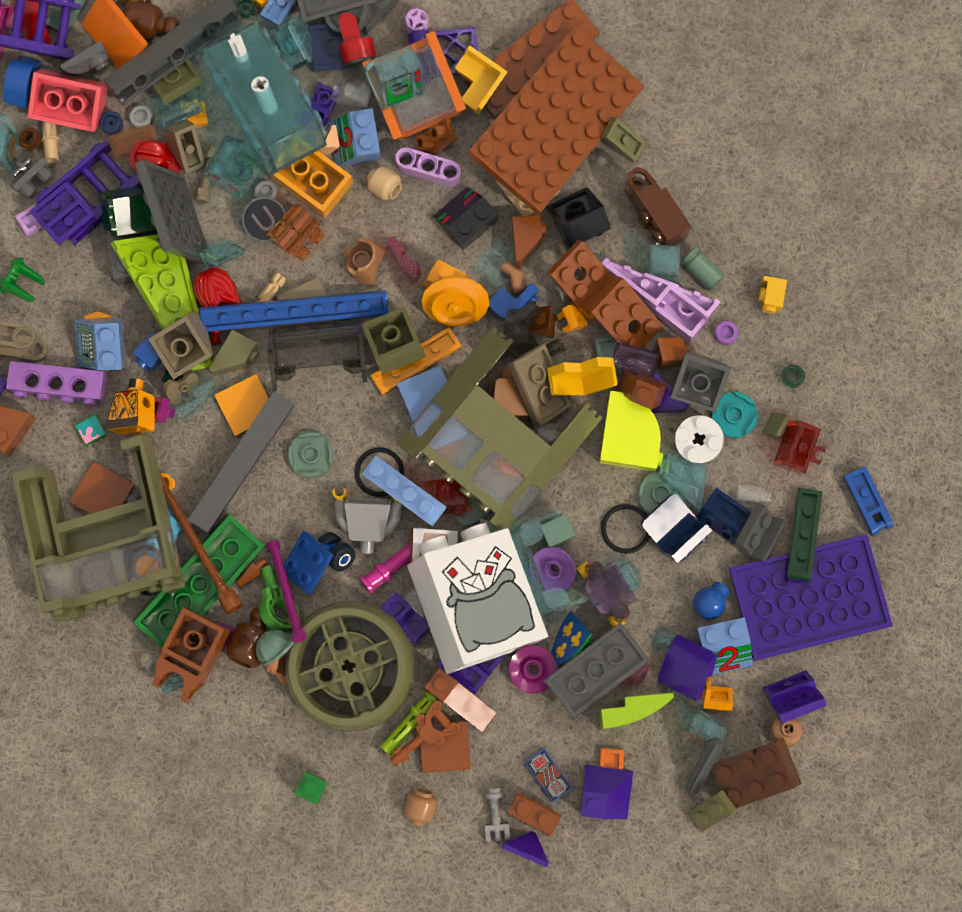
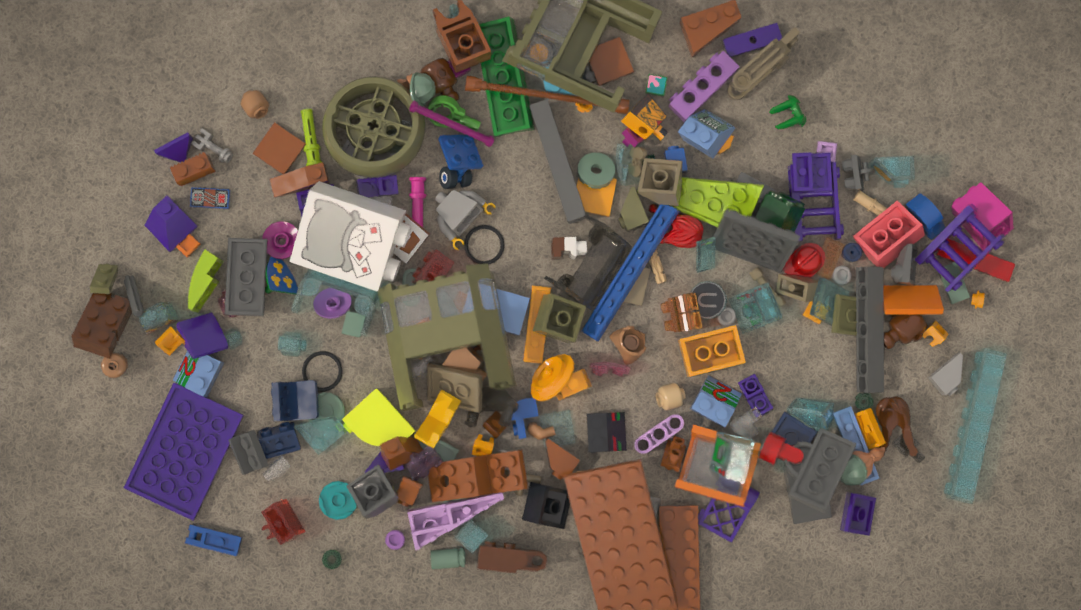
camera: 130 degrees right, 5 degrees up
(26, 134) = (885, 188): reddish brown plate -> none
(208, 420) = (600, 161): none -> sand green tile
(251, 572) = (484, 114): dark orange bar -> none
(264, 97) = (786, 360): clear light blue piece -> none
(311, 788) = (319, 46): green brick -> none
(313, 461) = (529, 210): sand green tile -> none
(316, 386) = (567, 245): none -> hips
(331, 140) = (727, 382): light nougat slope -> none
(404, 490) = (456, 248): light blue plate -> none
(418, 17) = (767, 506): lavender wheel -> none
(427, 732) = (295, 143): dark orange piece -> none
(483, 75) = (685, 516): yellow panel -> none
(607, 590) = (290, 324): clear purple torso -> none
(623, 139) = (574, 577): olive plate -> none
(703, 426) = (344, 471): white brick -> none
(711, 601) = (232, 385): blue piece -> none
(772, 295) = (394, 589): yellow brick -> none
(775, 425) = (309, 520): olive slope -> none
(794, 696) = (130, 388): dark purple slope -> none
(804, 535) = (224, 479): dark green tile -> none

